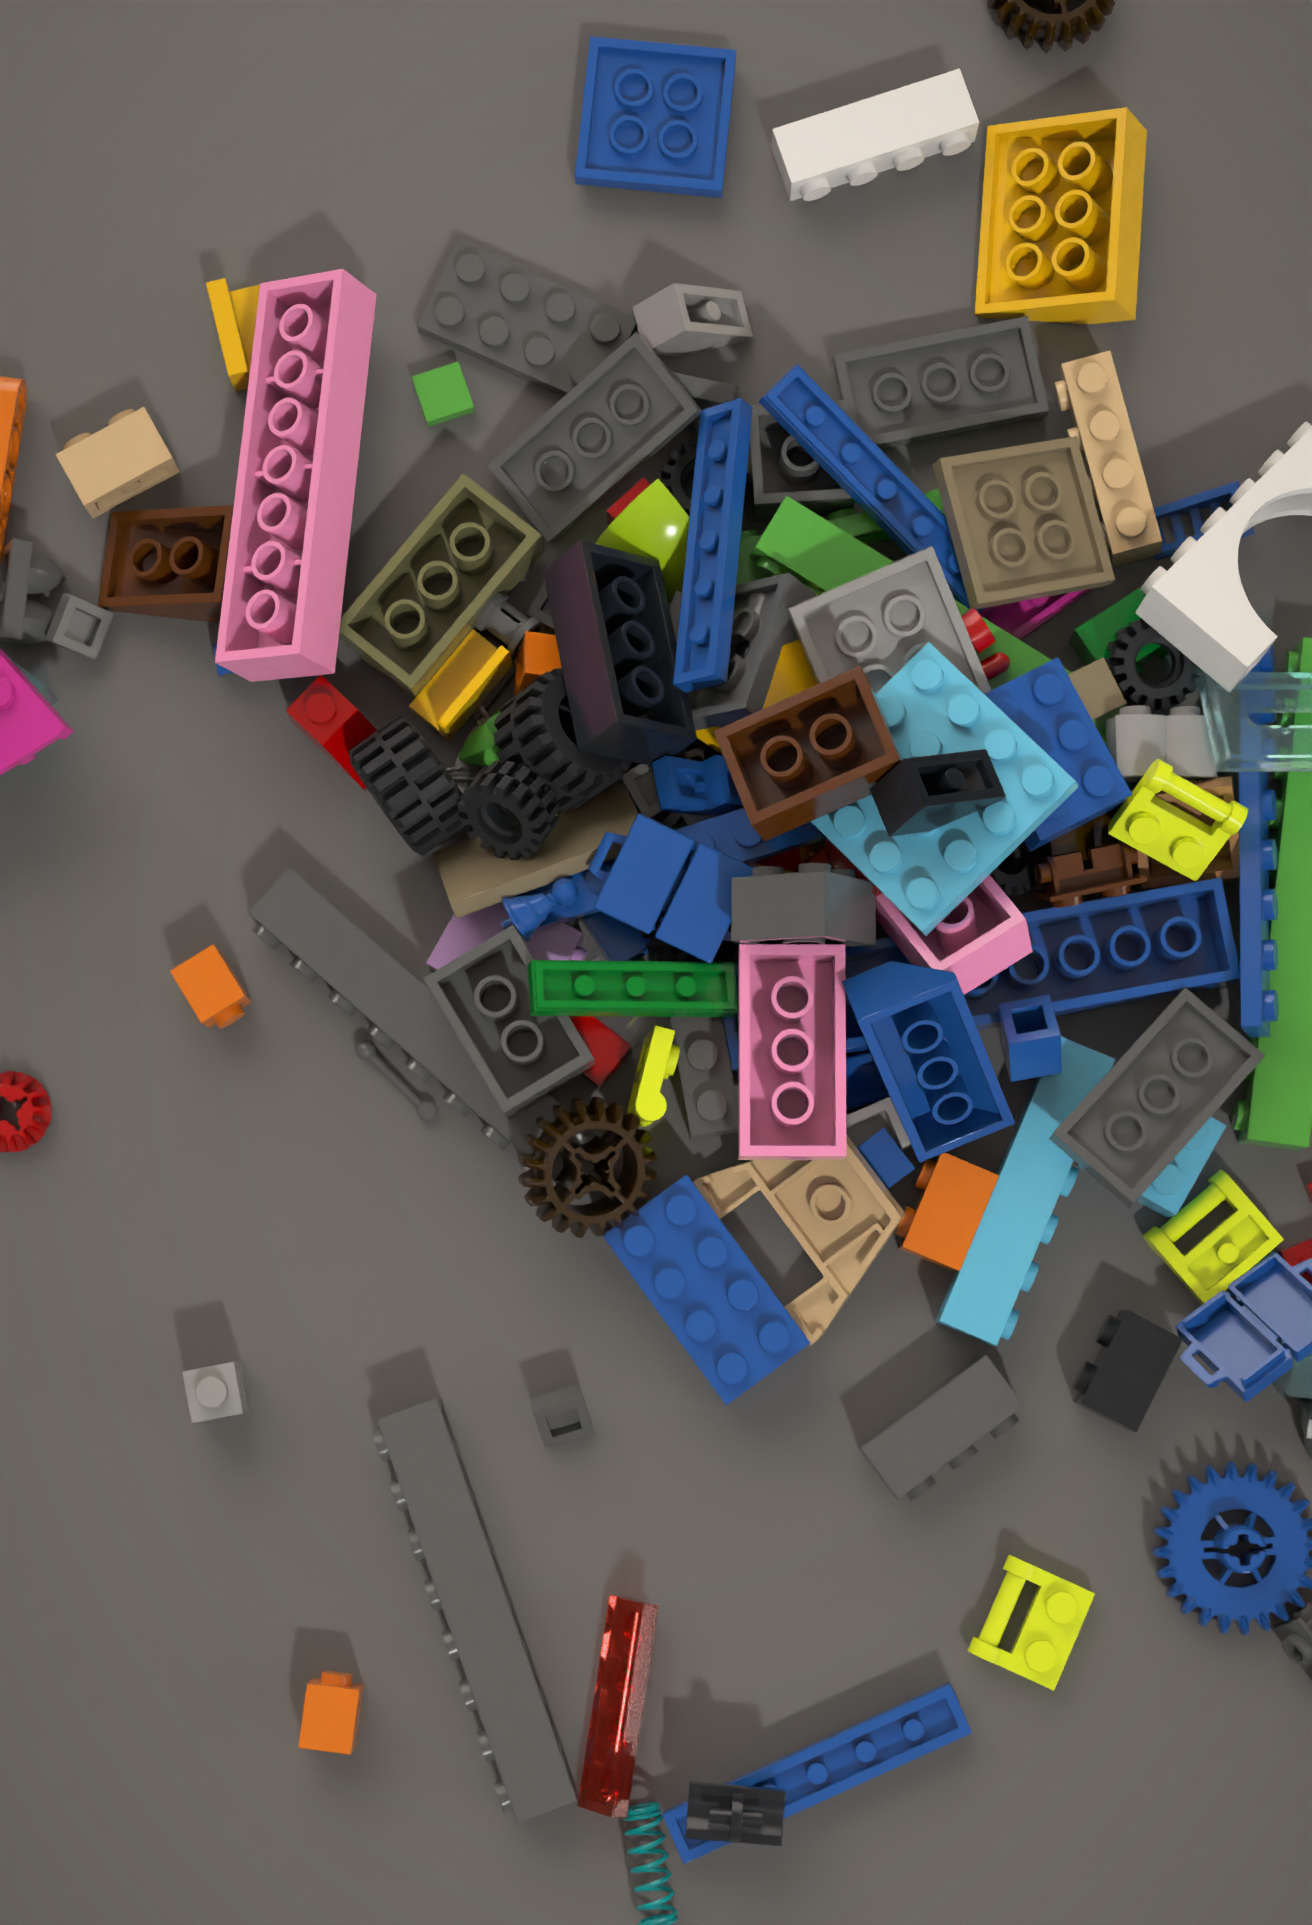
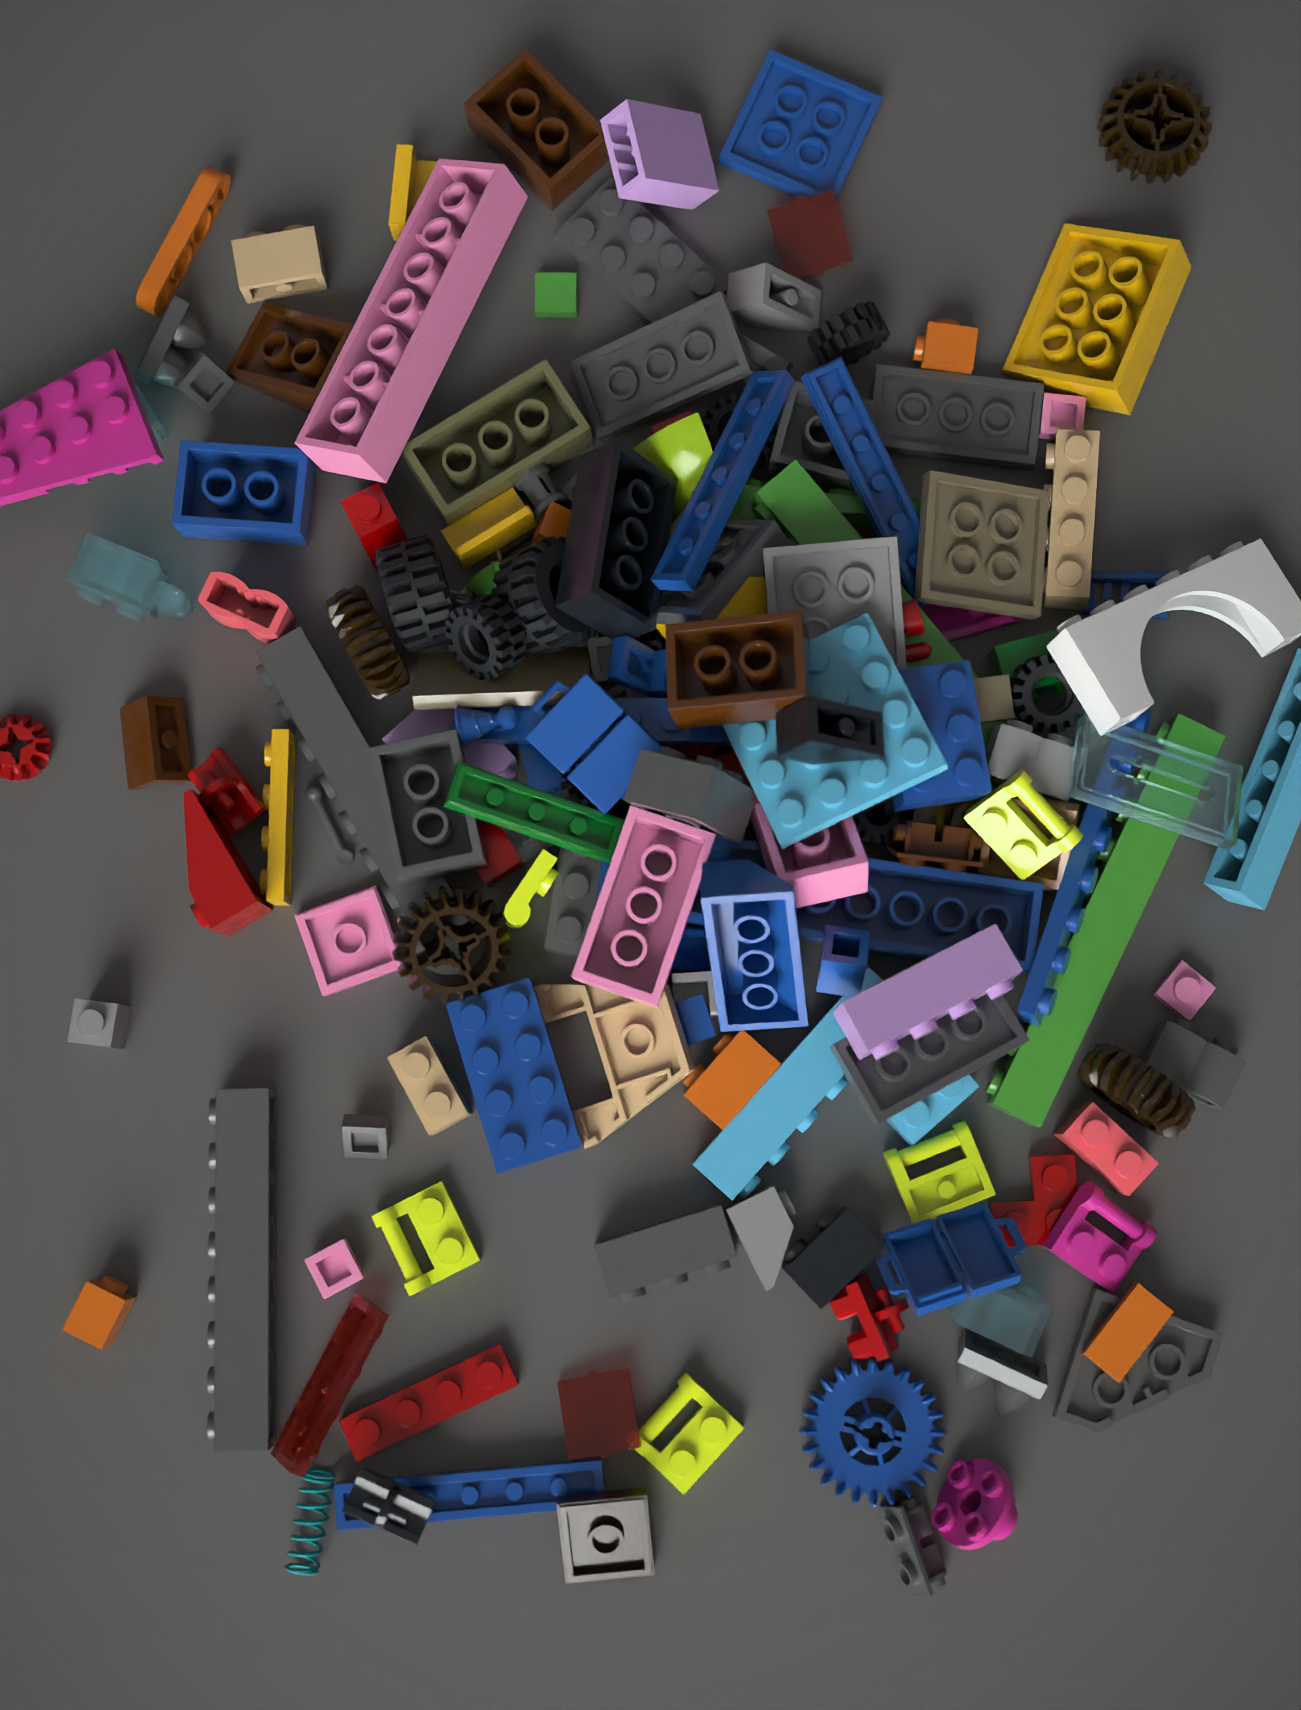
camera: 20 degrees right, 0 degrees up
(70, 880) = (126, 579): none -> clear light blue hinge
(166, 1053) = (155, 741): none -> reddish brown panel
(170, 737) = (244, 493): none -> blue brick
(206, 867) = (244, 608): none -> coral brick
(211, 988) = (208, 702): orange brick -> none
(270, 1081) = (226, 791): none -> red hips
(297, 1181) = (218, 877): none -> red slope
(330, 1070) = (279, 799): none -> yellow plate
(361, 213) = (537, 129): none -> reddish brown brick
(372, 859) = (367, 642): none -> dark brown gear
(465, 1202) = (348, 940): none -> bright pink tile
(510, 199) = (659, 155): none -> lavender brick
(578, 1574) = (334, 1268): none -> bright pink plate
(614, 1333) = (429, 1085): none -> tan brick
(681, 1493) = (439, 1231): none -> neon yellow plate
(708, 232) = (810, 235): none -> clear red piece
(734, 1687) = (428, 1402): none -> red plate
(792, 334) = (849, 334): none -> black tyre
(875, 136) = (970, 201): white brick -> none
(905, 310) = (946, 347): none -> orange brick
(929, 1634) = (599, 1414): none -> clear red piece
(983, 1764) = (605, 1535): none -> tile
(1042, 1367) = (764, 1230): none -> light grey slope
(1059, 343) = (1061, 412): none -> bright pink plate
(1137, 1040) = (927, 992): none -> lavender brick
(1206, 1440) = (877, 1315): none -> red hips

